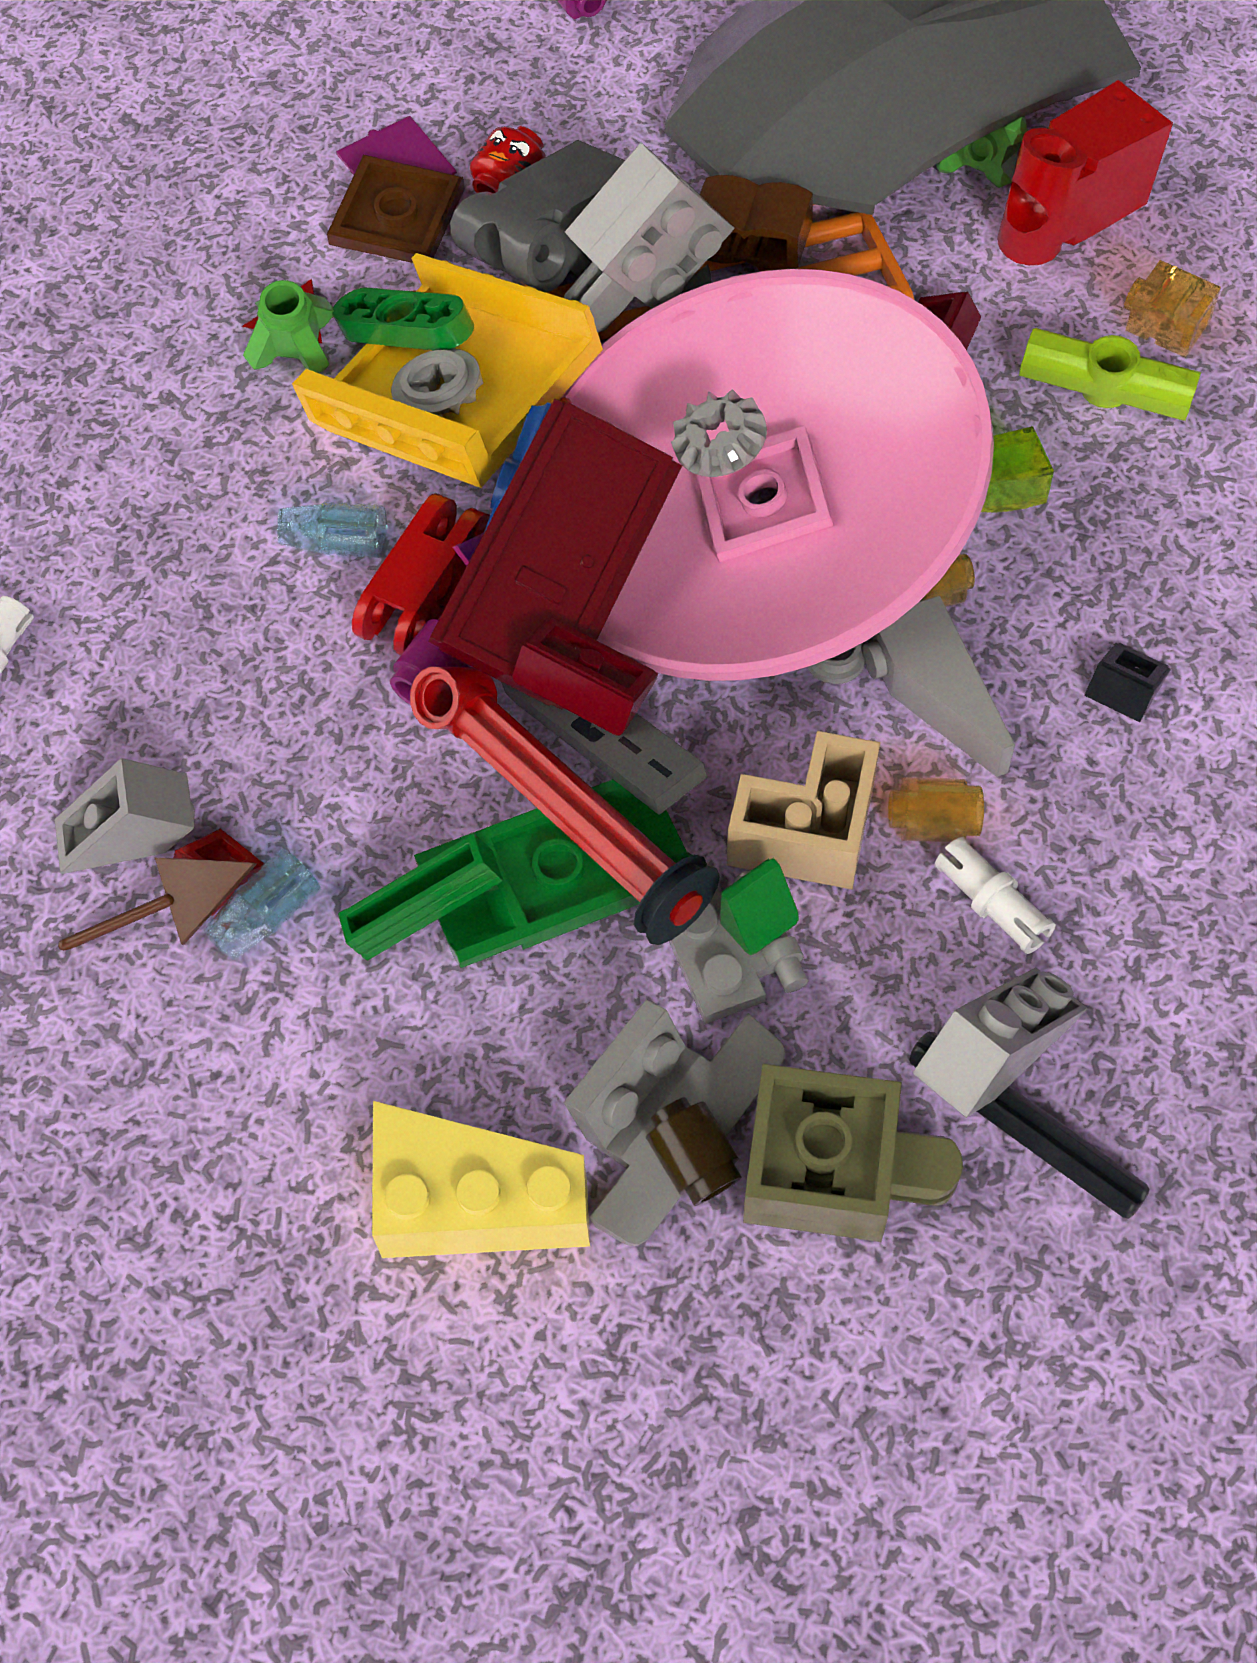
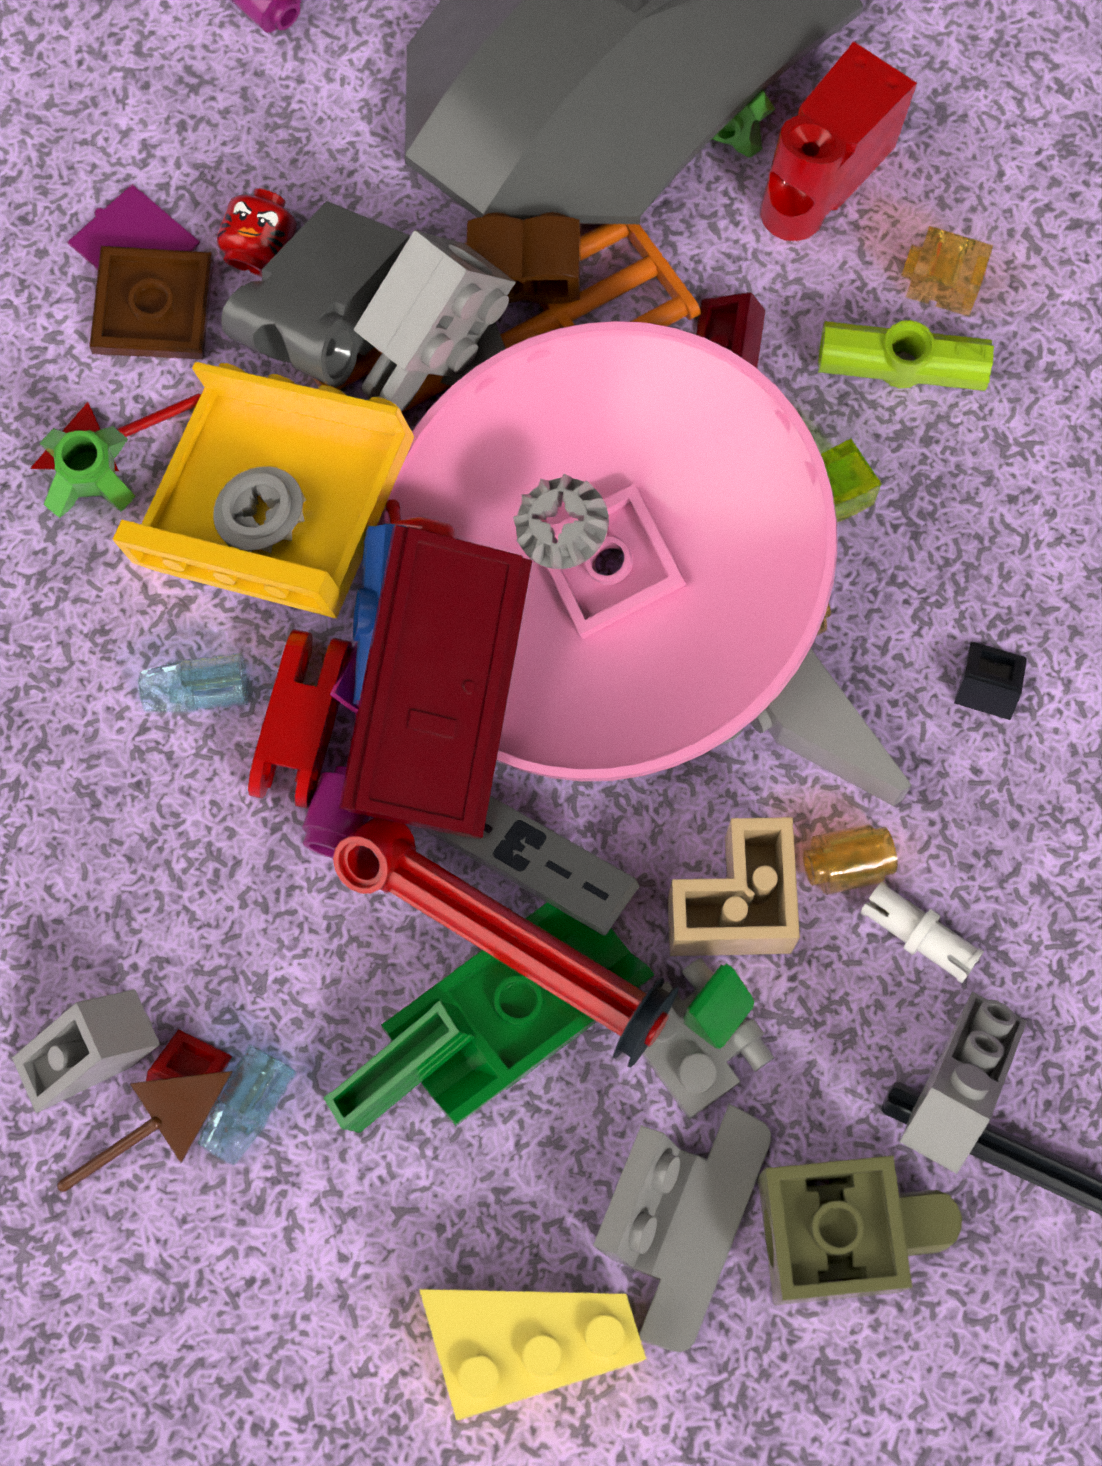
camera: 20 degrees left, 10 degrees up
(403, 318) = (218, 454): green beam -> none
(583, 675) = (498, 809): dark red slope -> none
(693, 1150) = (718, 1257): dark brown brick -> none

